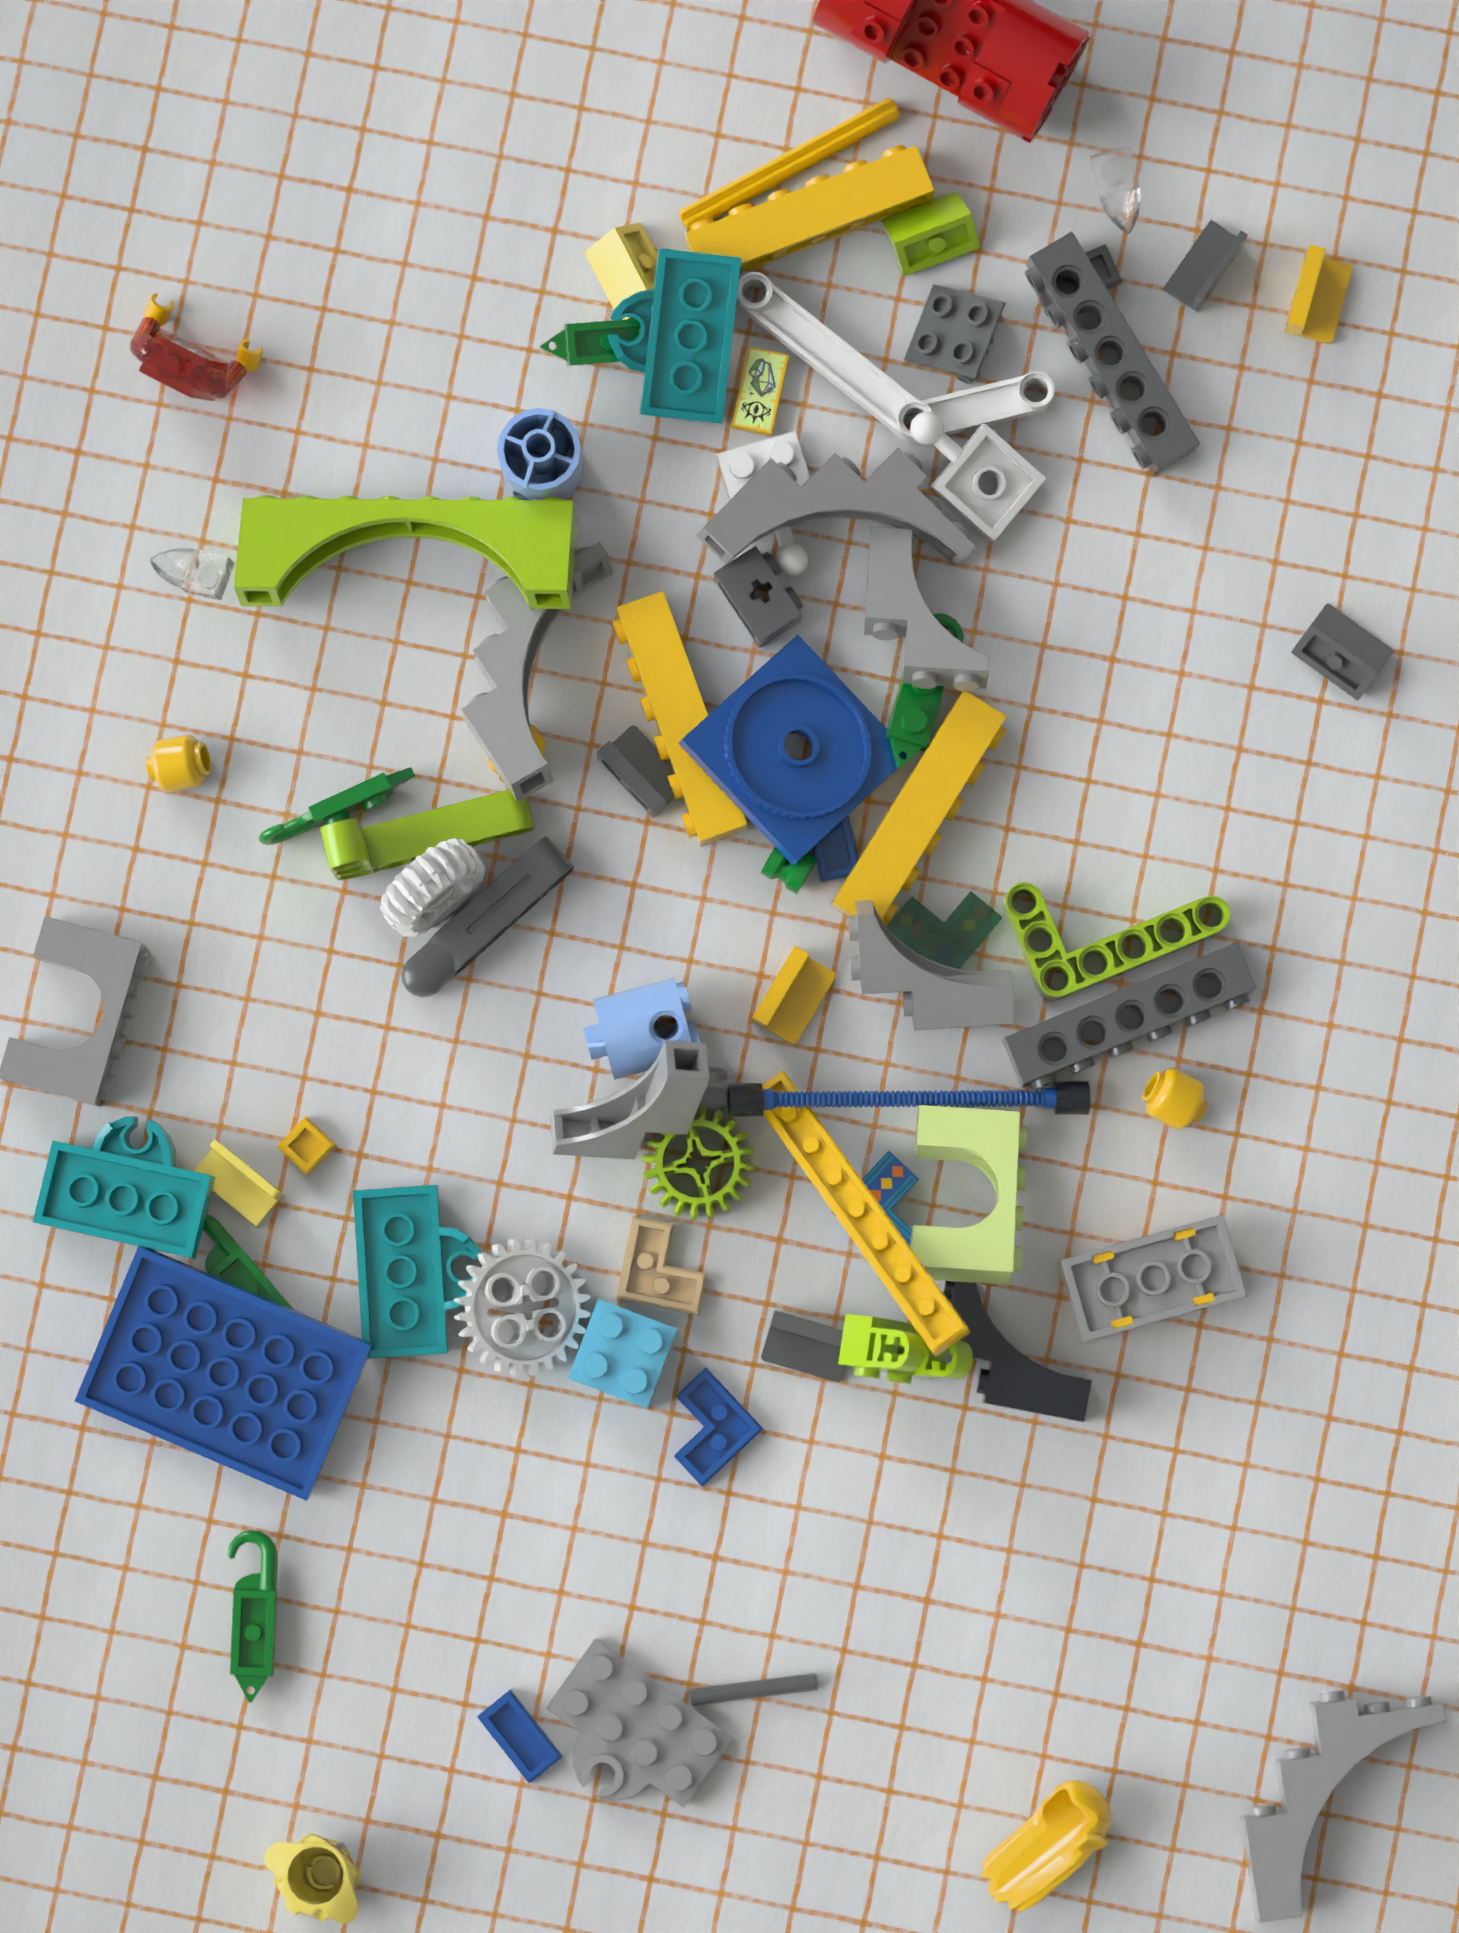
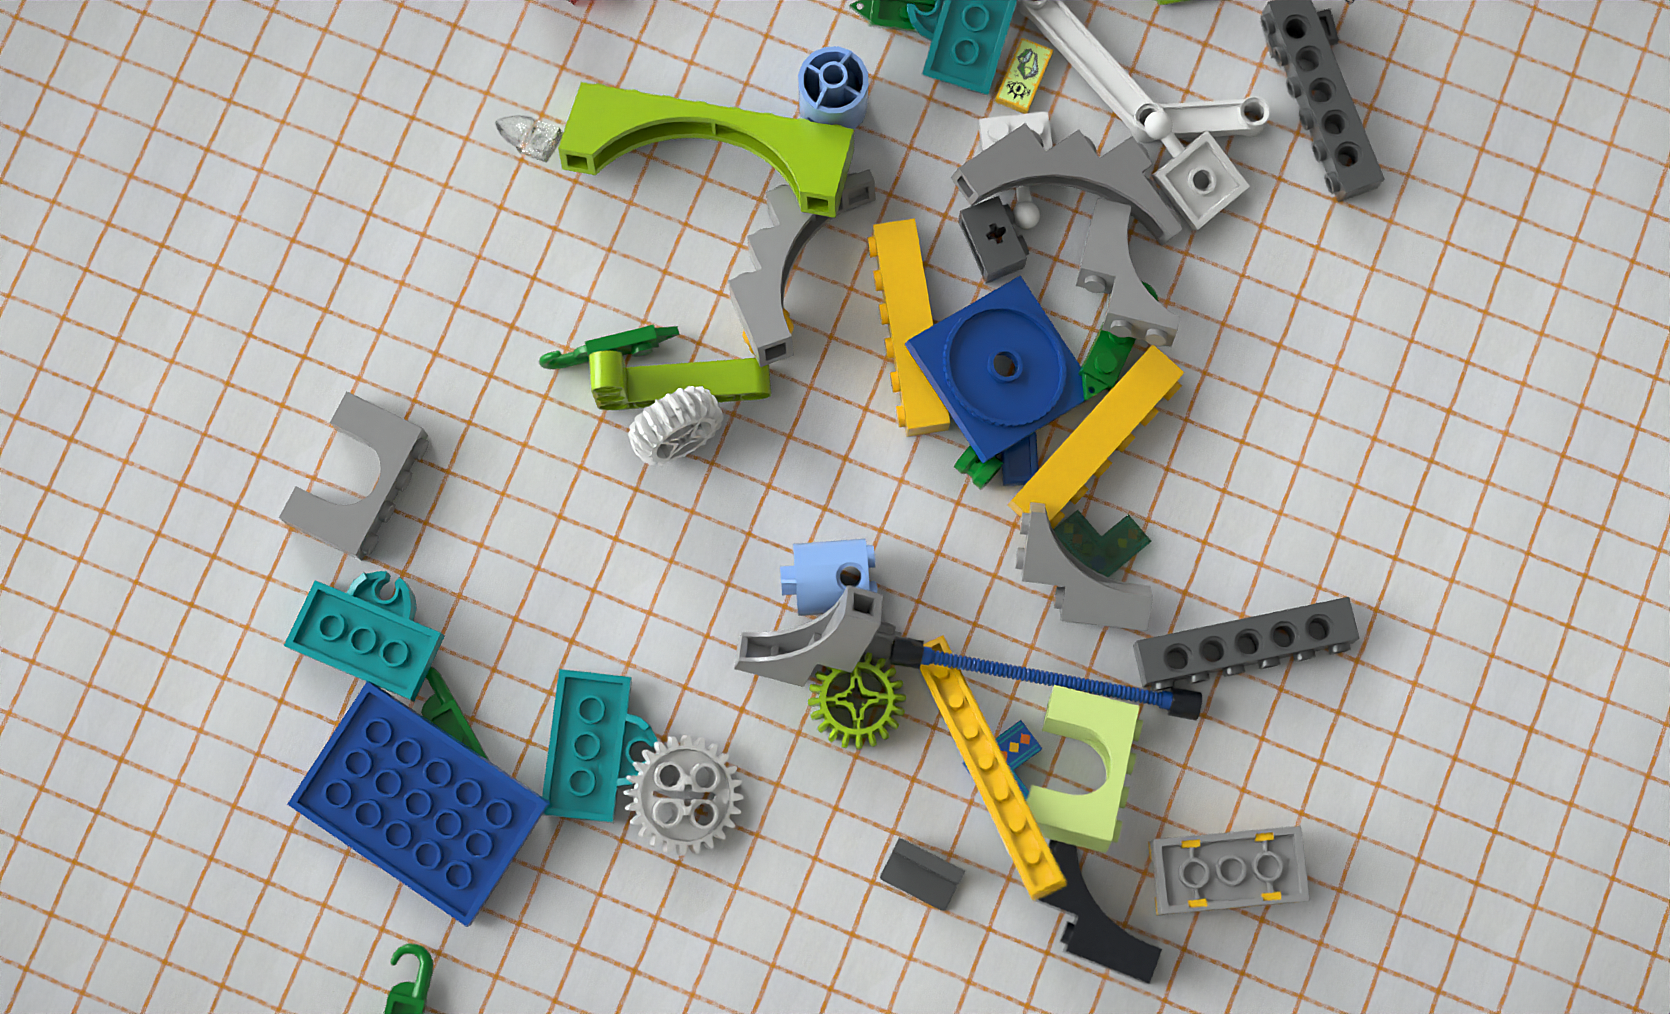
camera: 10 degrees right, 5 degrees down
(179, 763) = (485, 288): yellow head -> none
(239, 1184) = (465, 646): light yellow panel -> none
(306, 1145) = (528, 625): yellow tile -> none
(485, 918) = (715, 462): dark grey piece -> none
(623, 1353) = (762, 850): medium azure brick -> none
(639, 769) = (866, 363): dark grey panel -> none
(648, 1278) = (794, 786): tan tile -> none
(725, 1429) = (838, 931): blue tile -> none
(794, 996) = (963, 575): yellow panel -> none
(898, 1349) = (1000, 891): lime brick -> none
(955, 332) = (1194, 56): dark grey hinge -> none
(1108, 948) = (1236, 583): lime beam -> none
(1175, 1098) = (1273, 720): yellow head -> none
(1204, 265) = (1409, 40): dark grey panel -> none
(1318, 297) = (1499, 81): yellow panel -> none
(1342, 651) = (1474, 373): dark grey panel -> none

